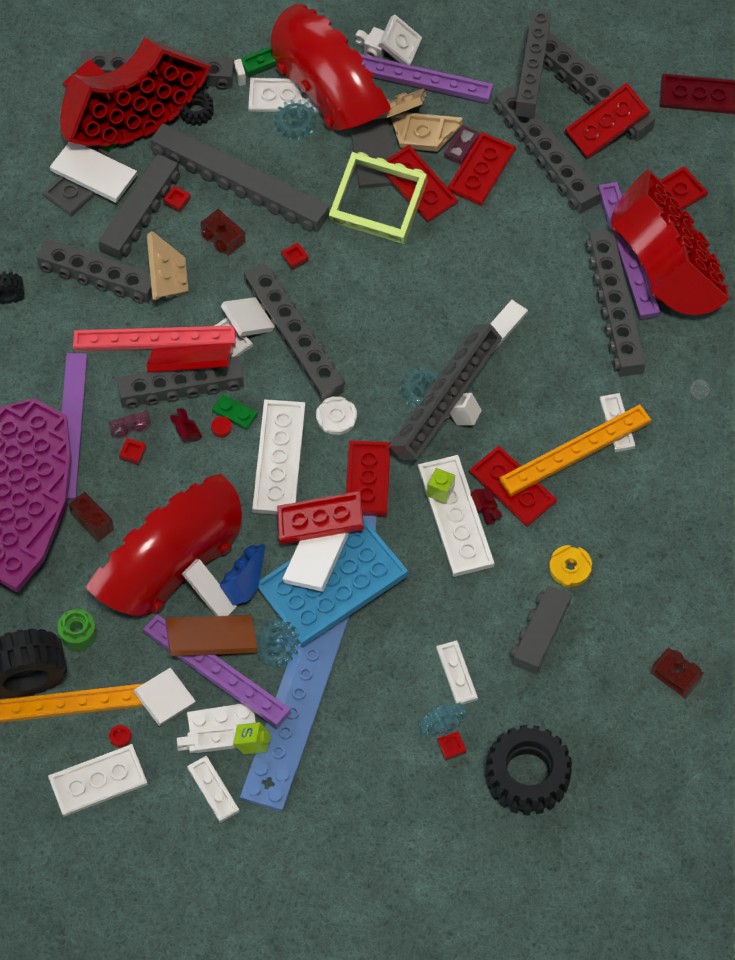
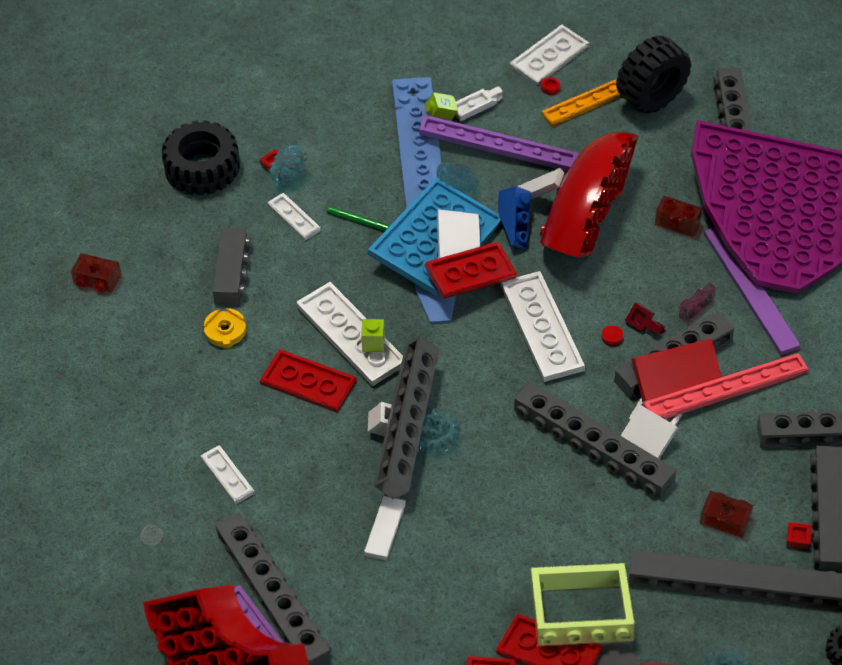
camera: 160 degrees right, 10 degrees down
(77, 640) = (637, 126): bright green piece -> none
(132, 451) = (679, 284): red plate -> none
(164, 696) = (530, 117): white tile -> none
(166, 268) = (755, 446): tan wing -> none
(211, 635) = (517, 162): dark orange tile -> none
(213, 789) = (455, 77): white tile -> none
(220, 716) = (485, 117): white plate -> none
(236, 412) = (607, 352): green plate -> none
(295, 256) = (637, 519): red plate -> none
(330, 416) = (502, 387): white tile -> none
(370, 475) = (448, 331): red tile -> none
(388, 639) = (357, 219): none -> green bar
(485, 502) = (327, 351): dark red plate -> none
(575, 450) = (256, 427): light orange tile -> none

